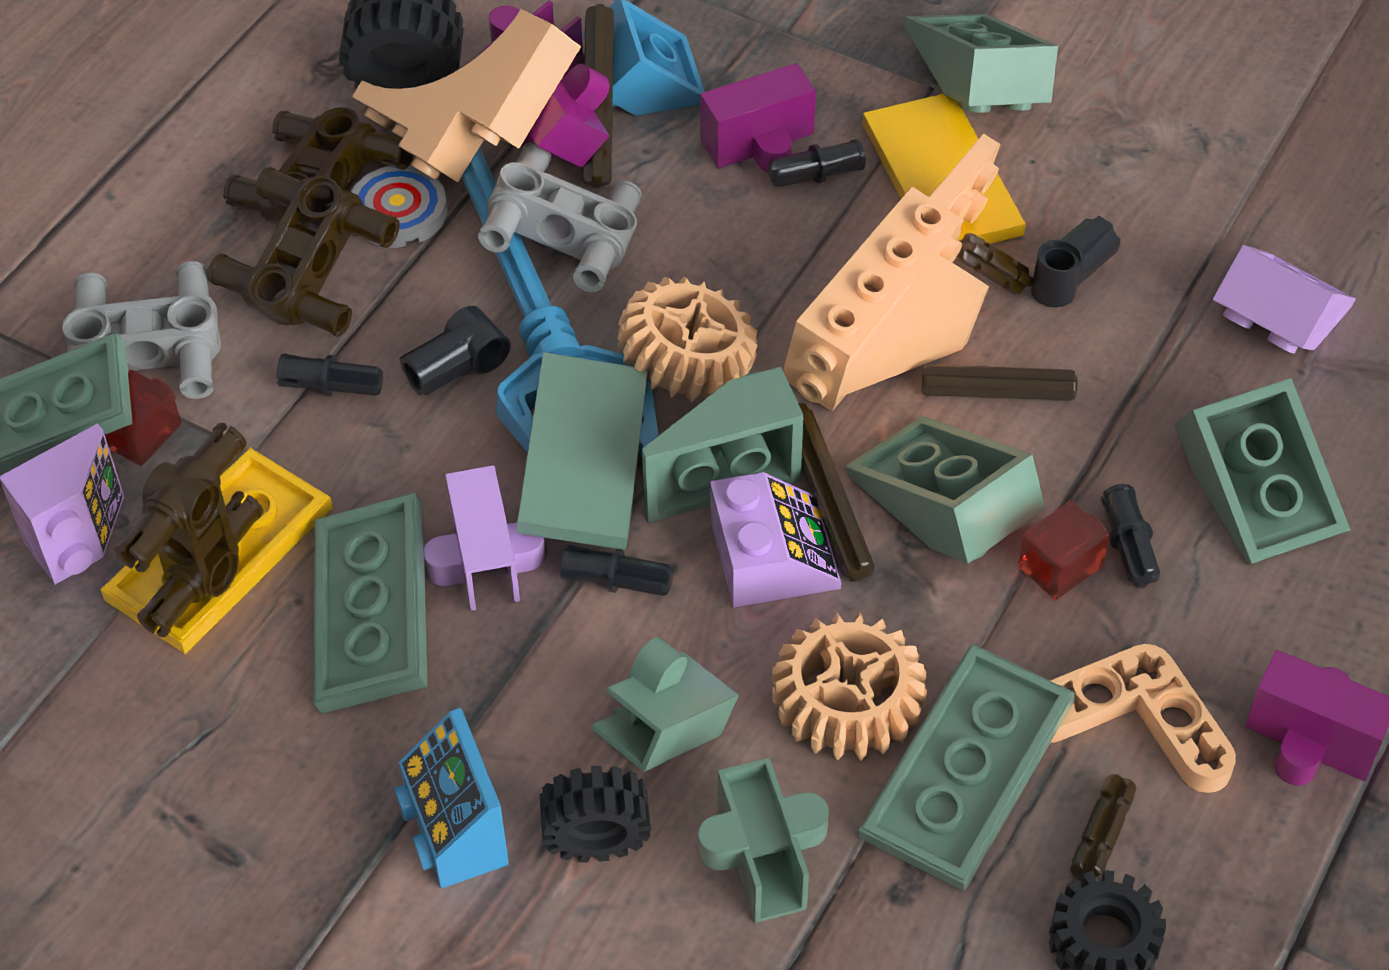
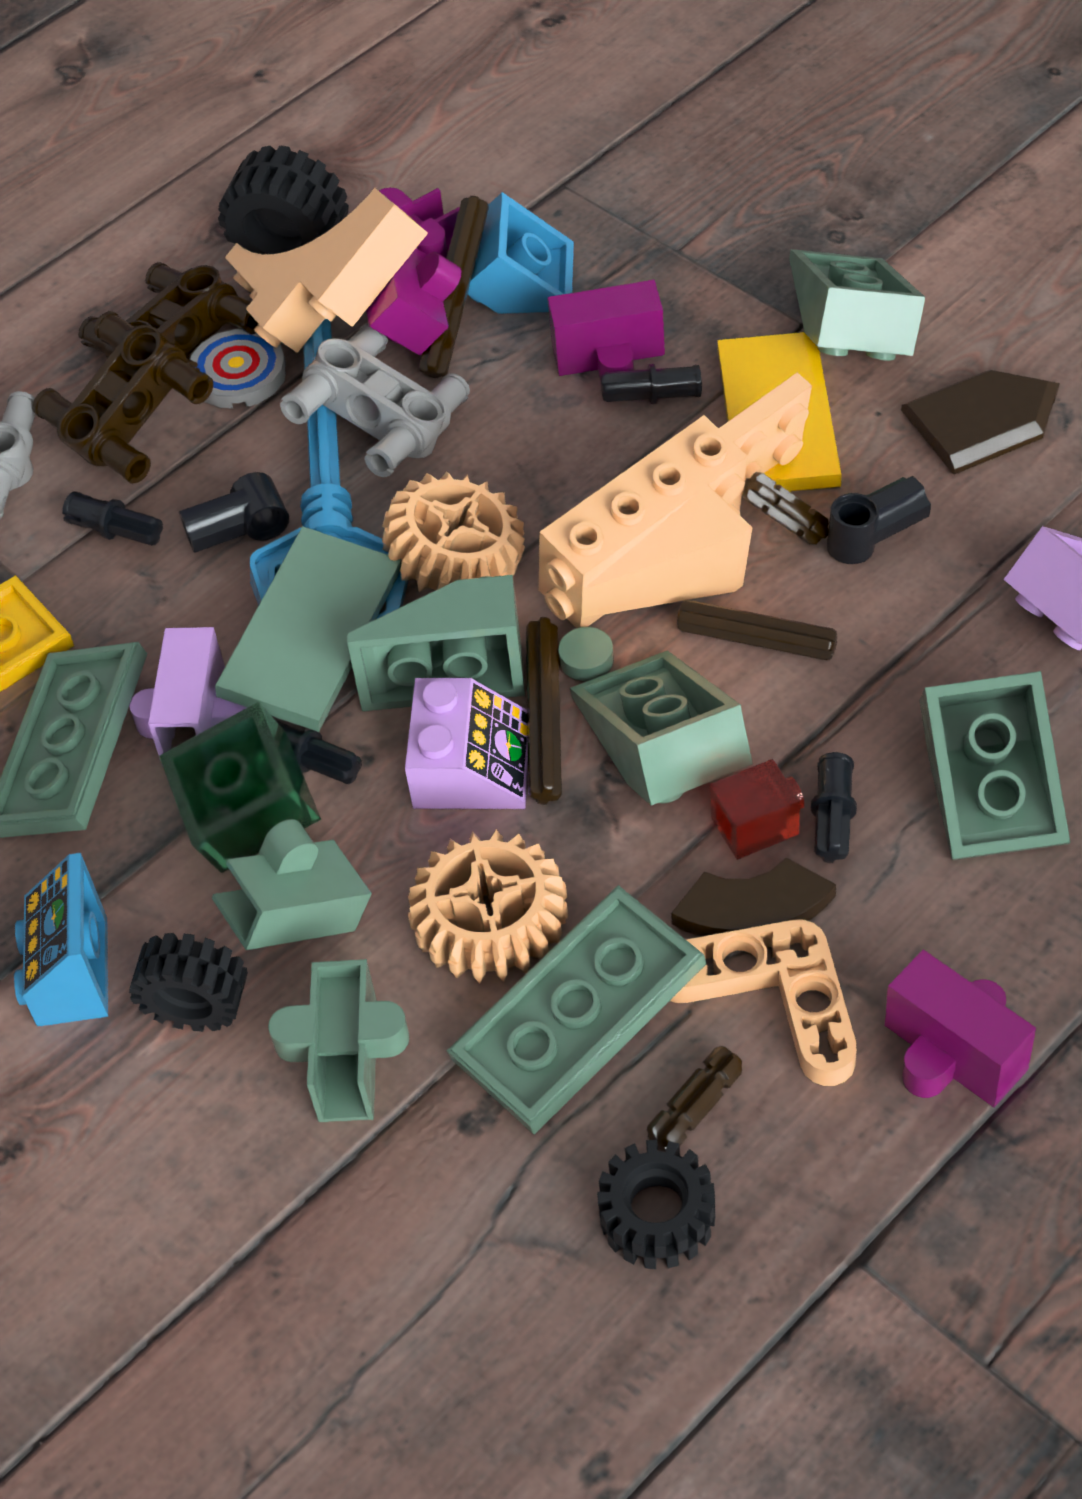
camera: 20 degrees right, 0 degrees up
(574, 616) = (237, 785): none -> clear green brick
(847, 431) = (586, 653): none -> sand green tile
(1077, 641) = (776, 896): none -> dark brown tile
(1130, 151) = (982, 417): none -> dark brown tile

